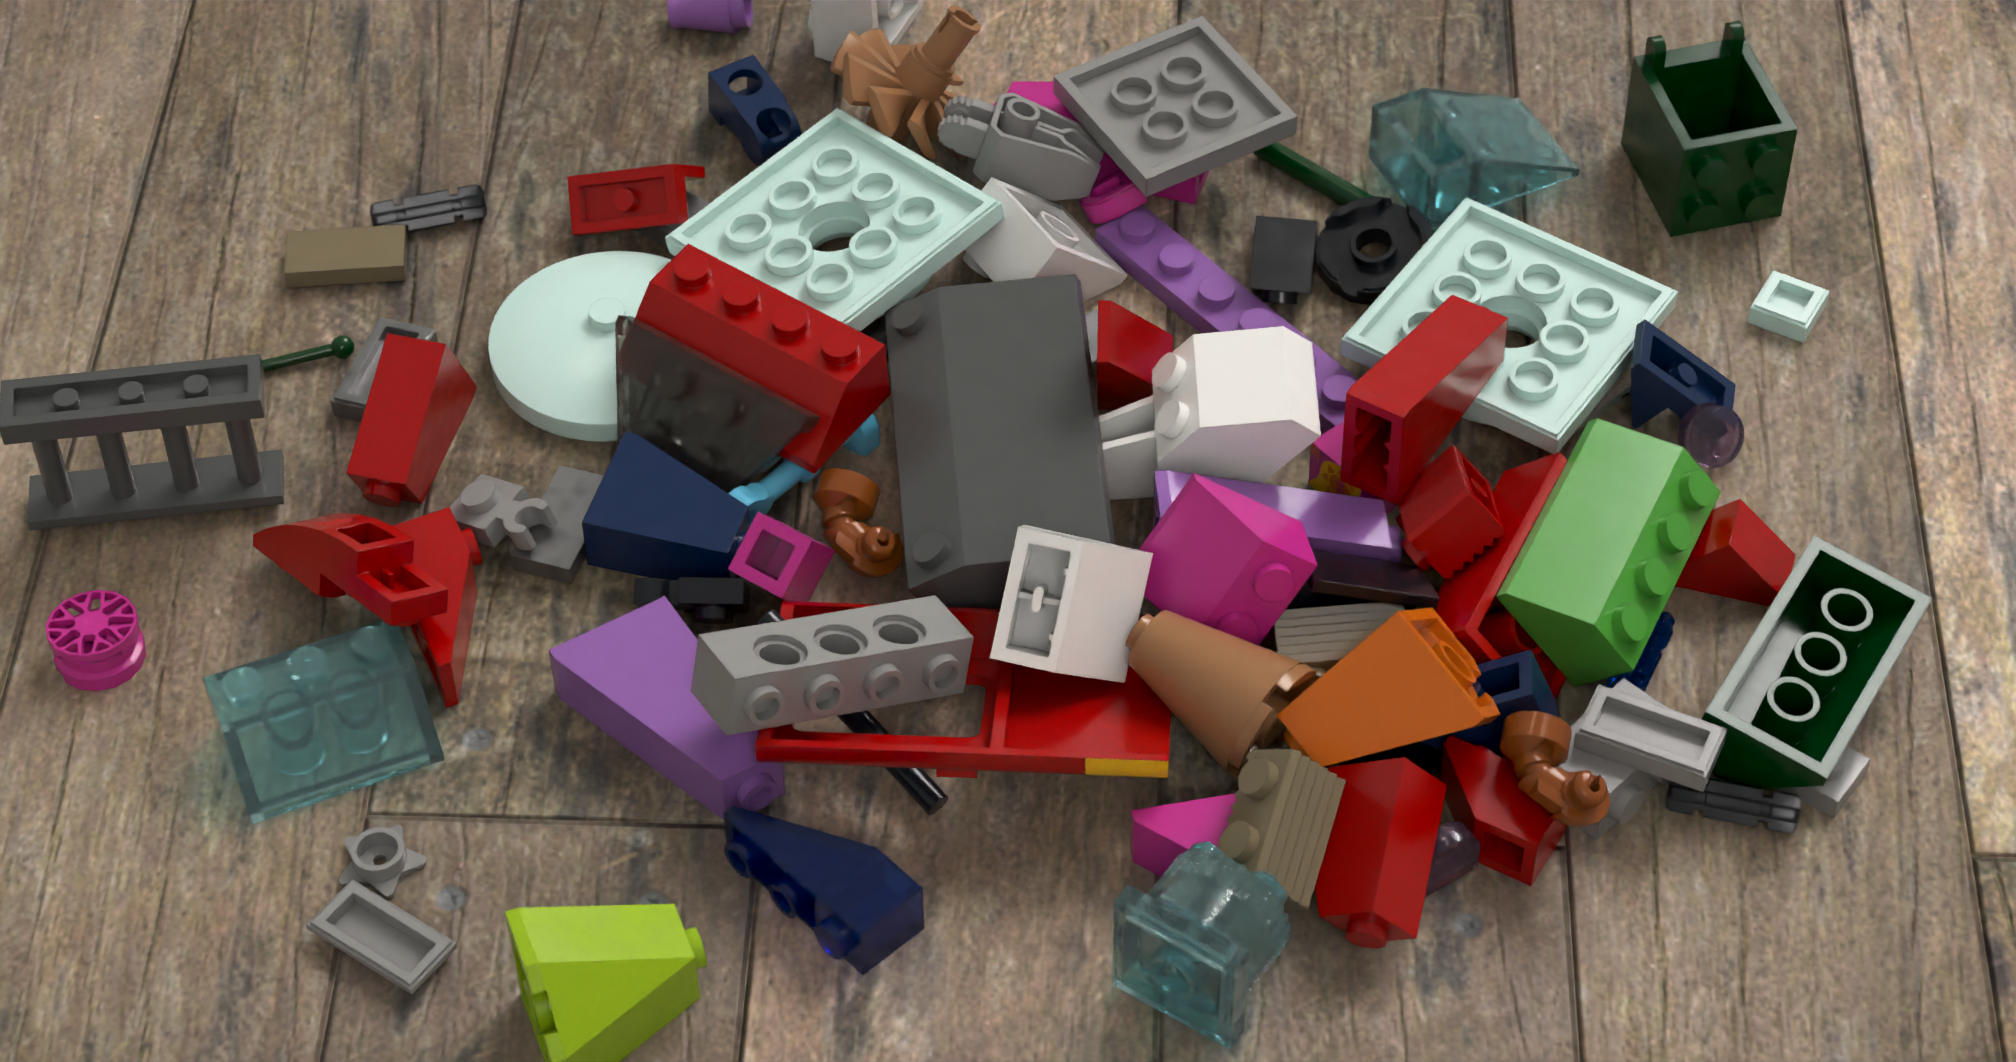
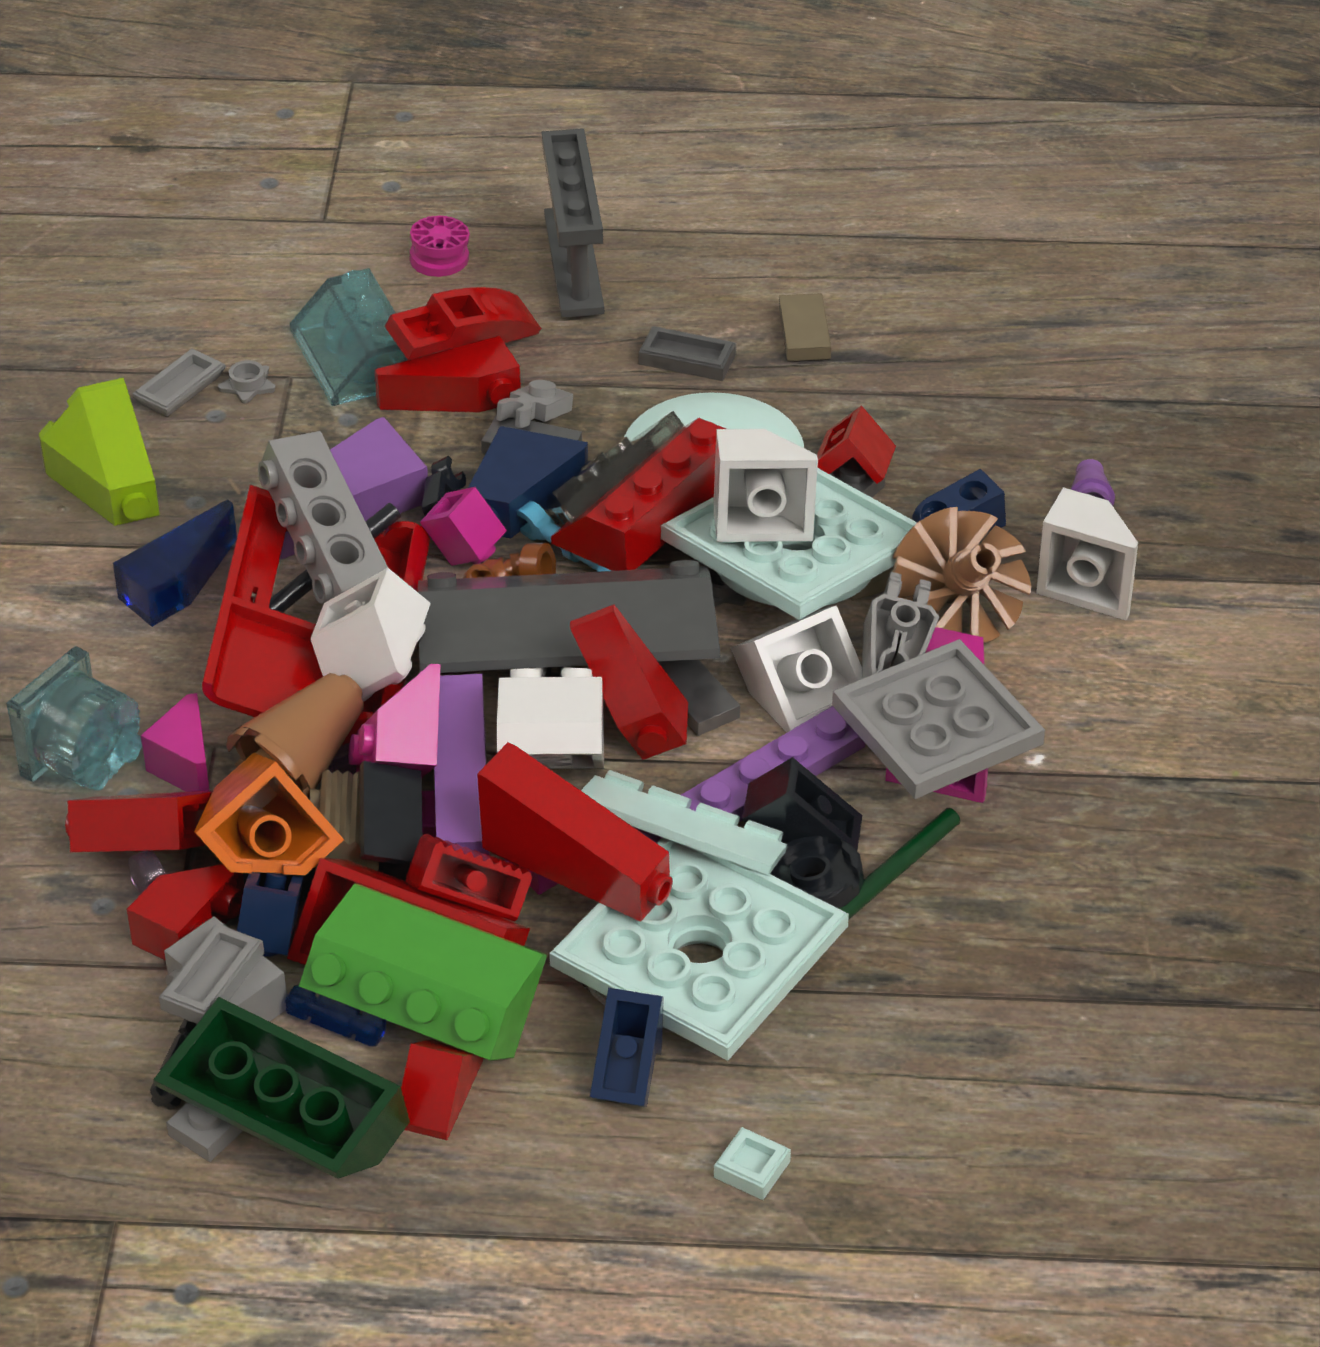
camera: 90 degrees right, 5 degrees down
(340, 347) = (693, 293): dark green hinge -> none
(409, 420) = (619, 353): red slope -> none
(431, 208) = (852, 361): black axle -> none
(820, 209) = (763, 487): none -> white slope
(1283, 820) = (158, 761): dark tan brick -> none
(1350, 313) = (704, 829): none -> light aqua windscreen
(1462, 145) = (930, 933): clear light blue slope -> none
(1536, 746) = (155, 908): dark orange arm -> none
(1707, 134) = (935, 1087): dark green container -> none
(1711, 434) = (575, 1076): tile -> none

